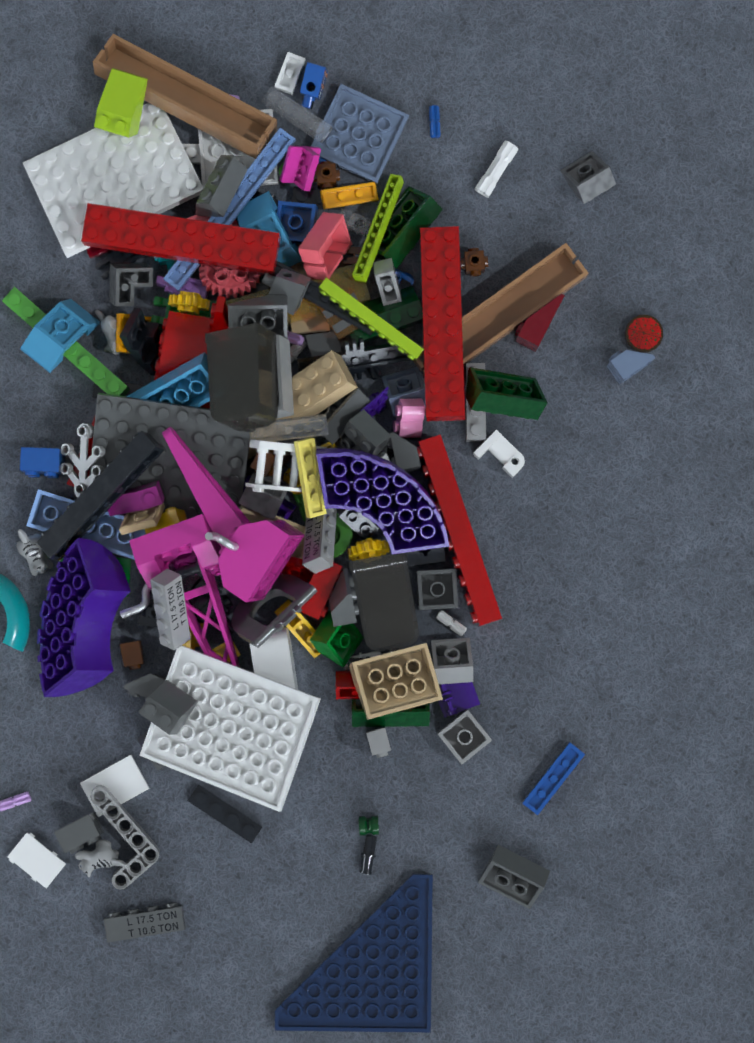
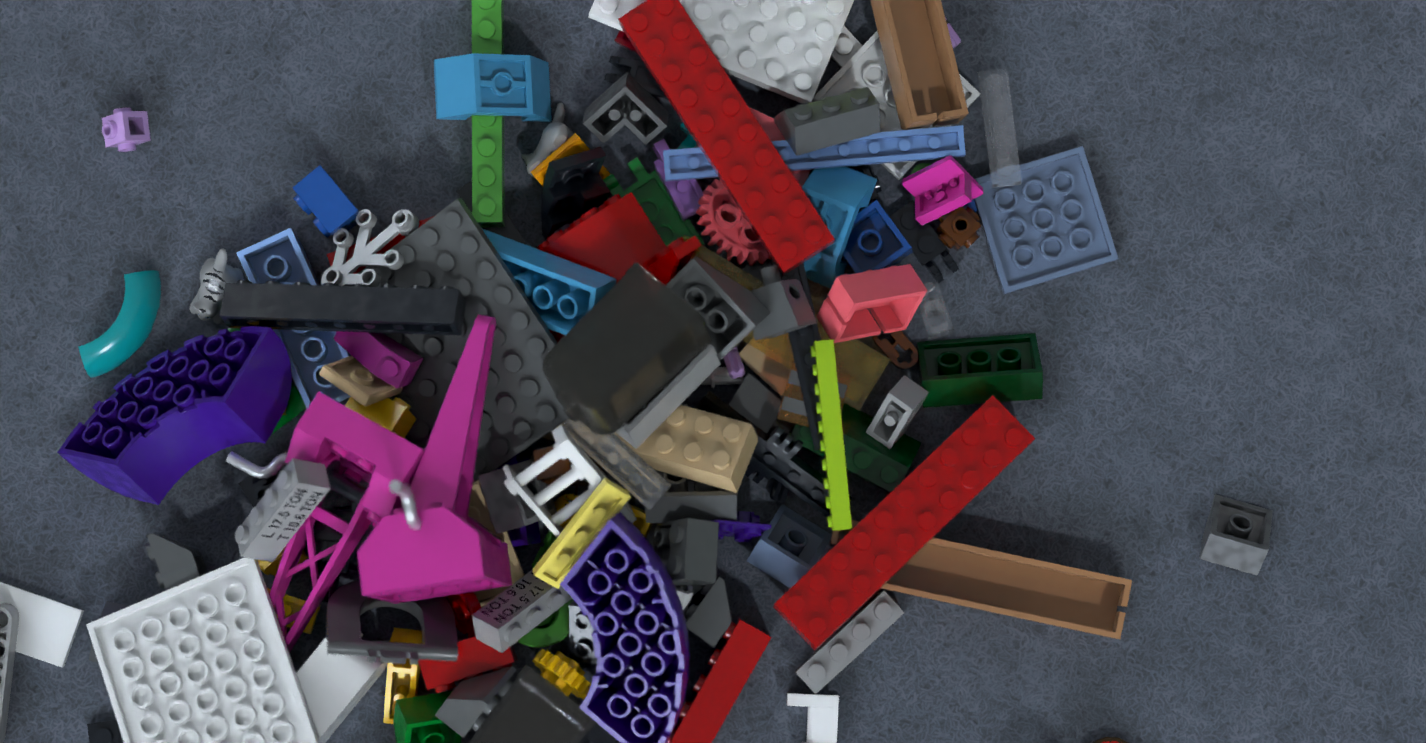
camera: 50 degrees right, 0 degrees up
(132, 655) = (198, 508): reddish brown brick -> none
(168, 707) = (168, 610): dark grey slope -> none
(189, 302) = (663, 205): yellow gear -> none
(290, 73) = (1041, 75): white plate -> none
(316, 76) = (1064, 112): blue torso -> none
(349, 195) = (959, 275): light orange tile -> none
(378, 228) = (950, 344): lime piece -> none
(404, 275) = (925, 424): blue piece -> none
(409, 418) = (760, 582): bright pink brick -> none
(434, 117) = (1142, 291): blue piece -> none
(471, 268) = (1004, 500): reddish brown brick -> none
(496, 169) = (1147, 418): white axle -> none
(504, 394) = (888, 668): dark green slope -> none
(533, 330) = (999, 634): dark red slope -> none

